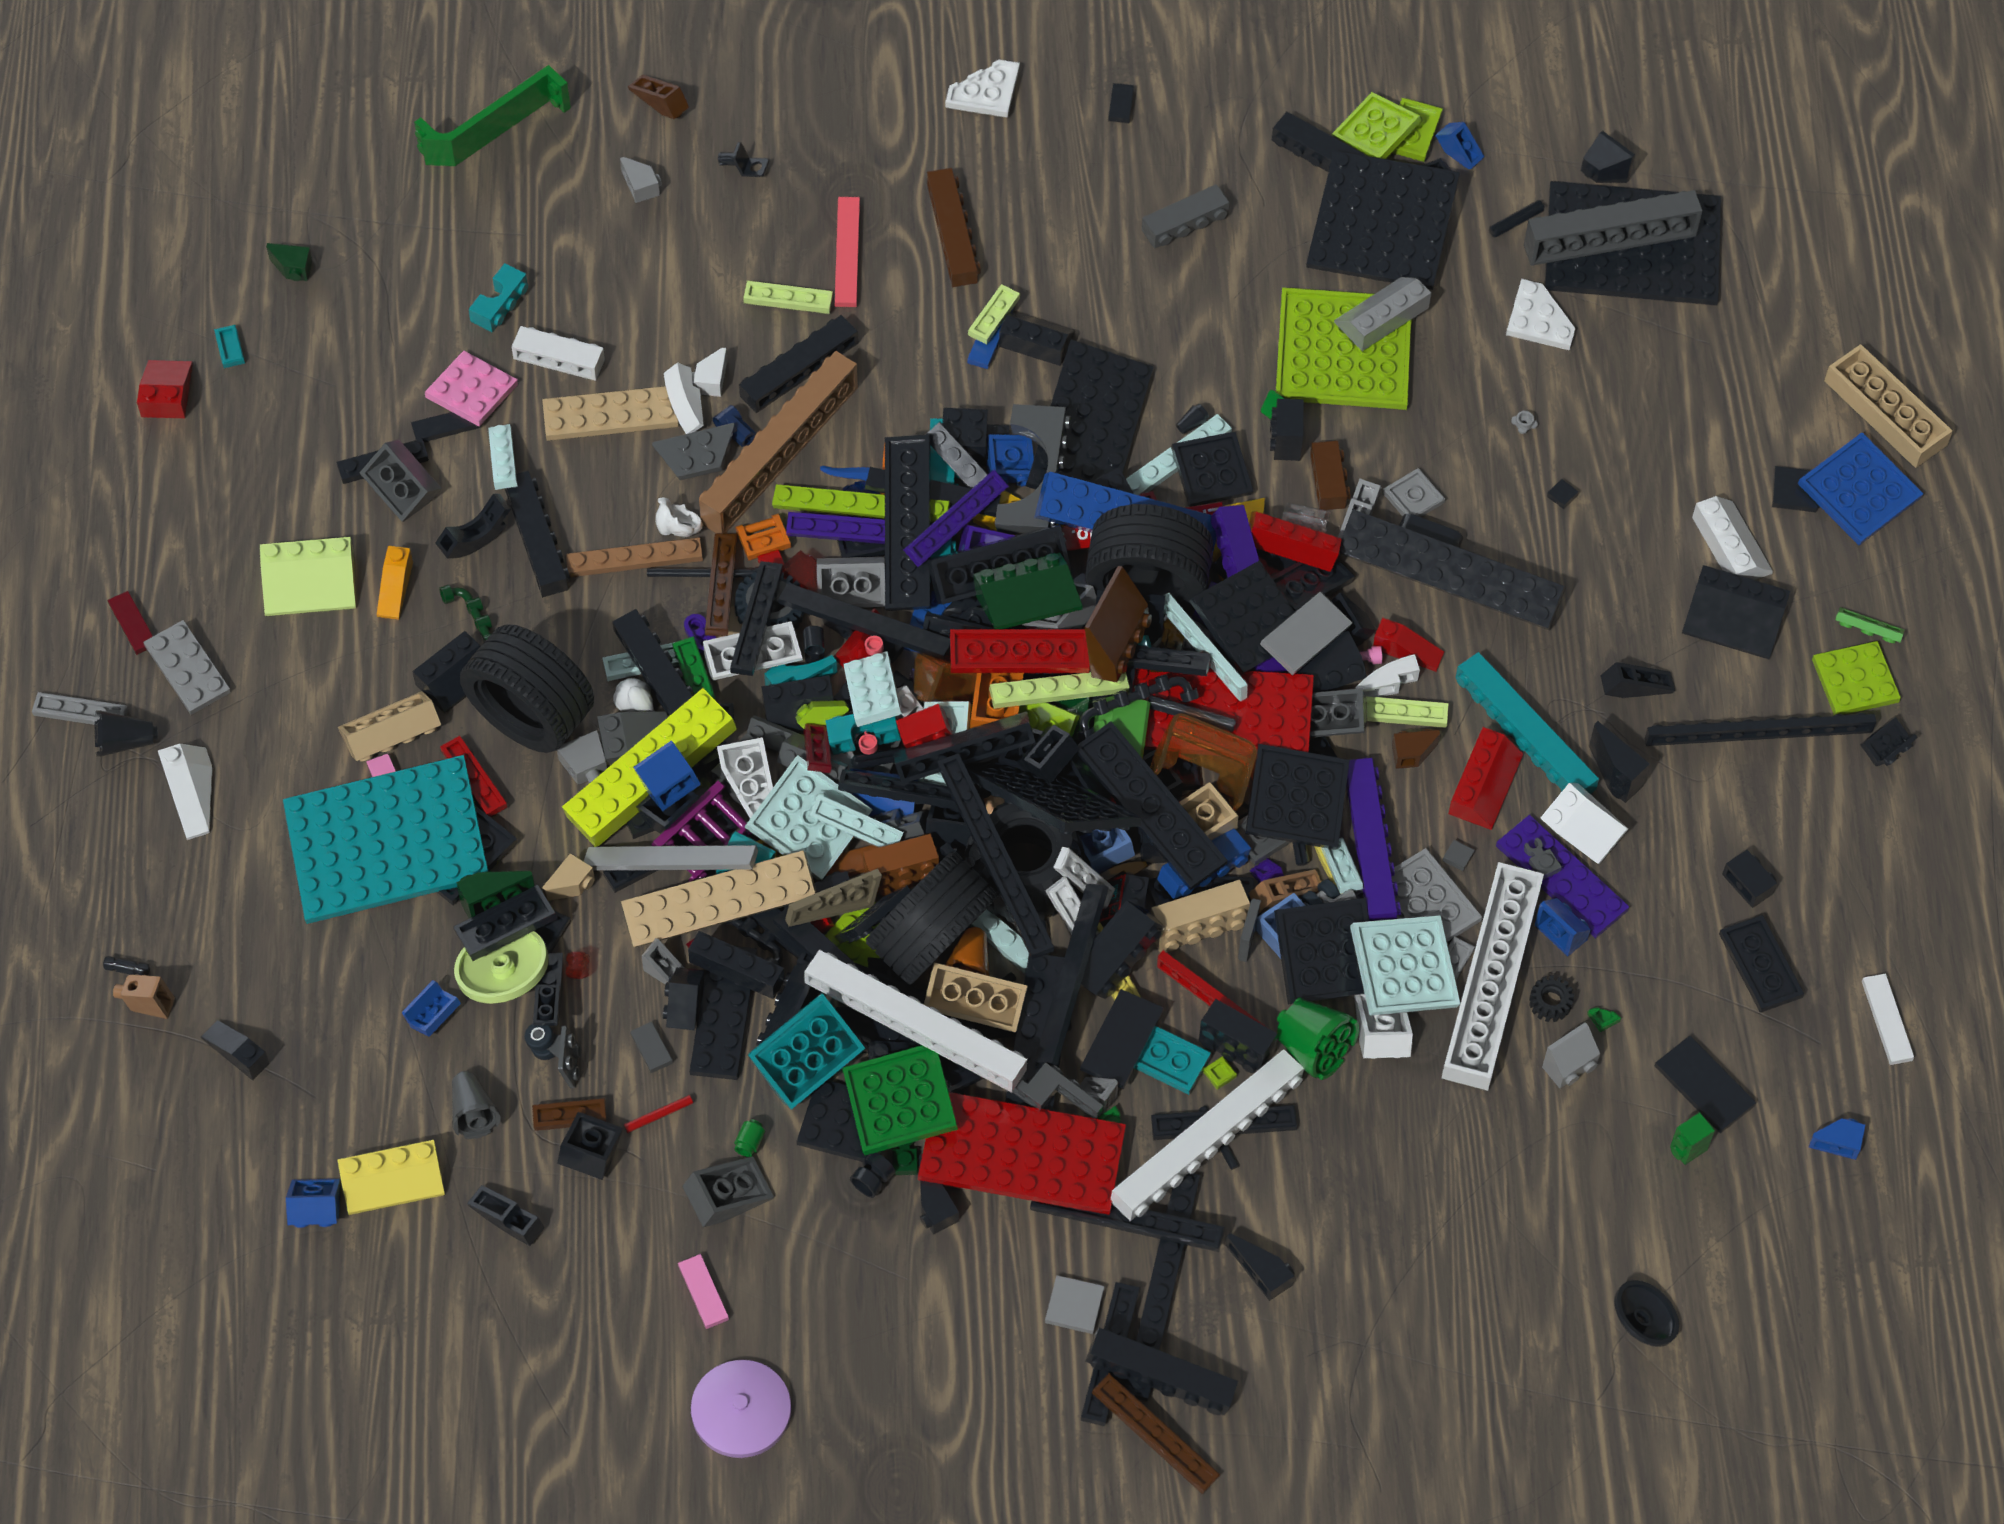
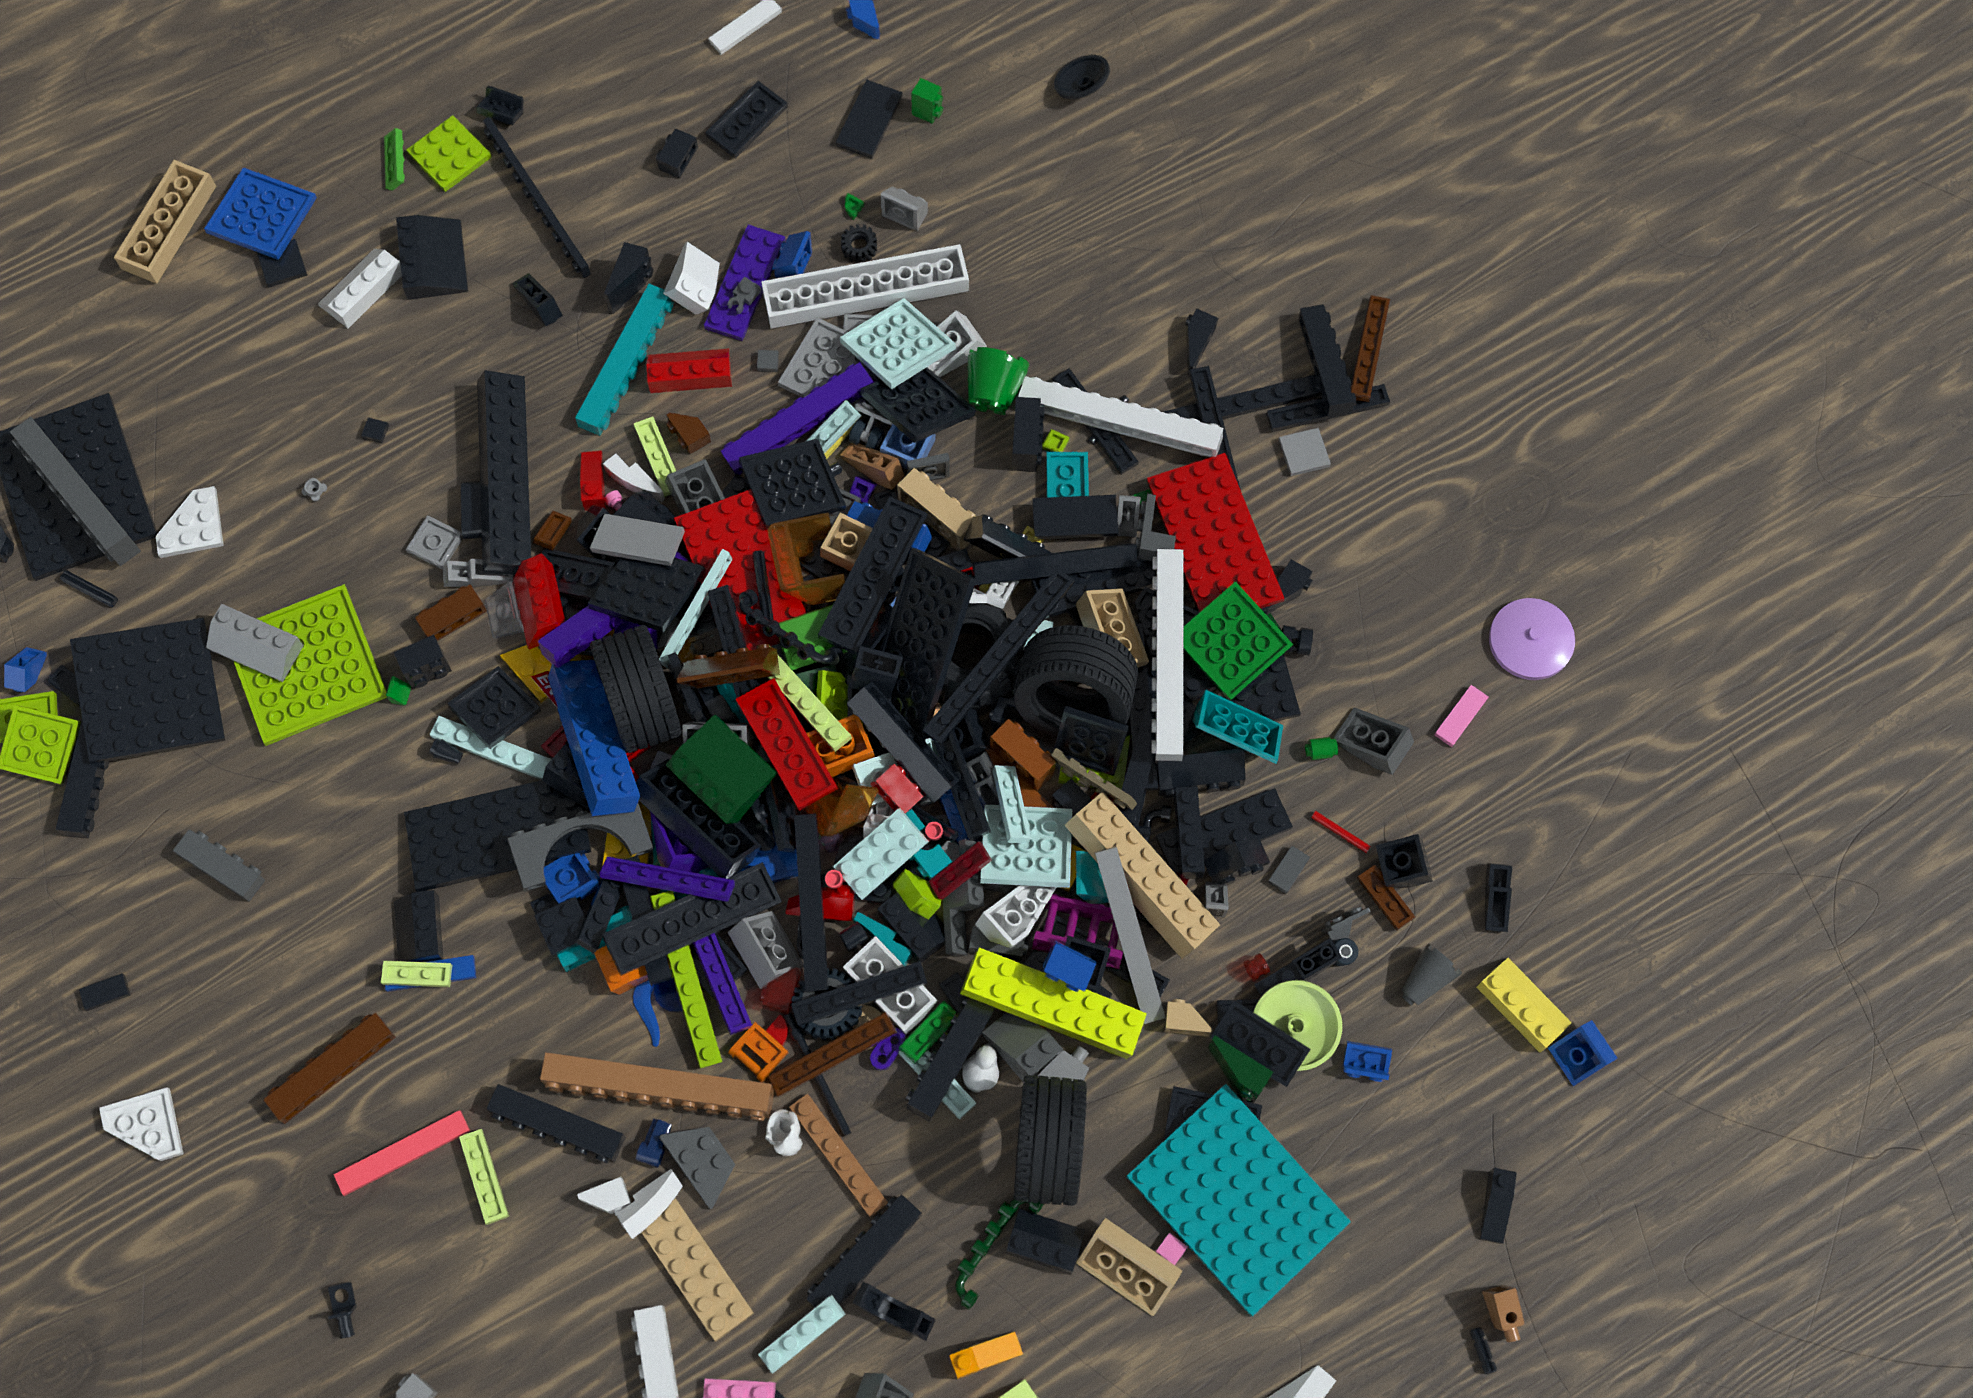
camera: 120 degrees left, 10 degrees up
(482, 788) = (1141, 1147): red plate -> none
(1194, 983) = (1000, 464): red tile -> none
(1369, 590) = (552, 530): none -> reddish brown tile

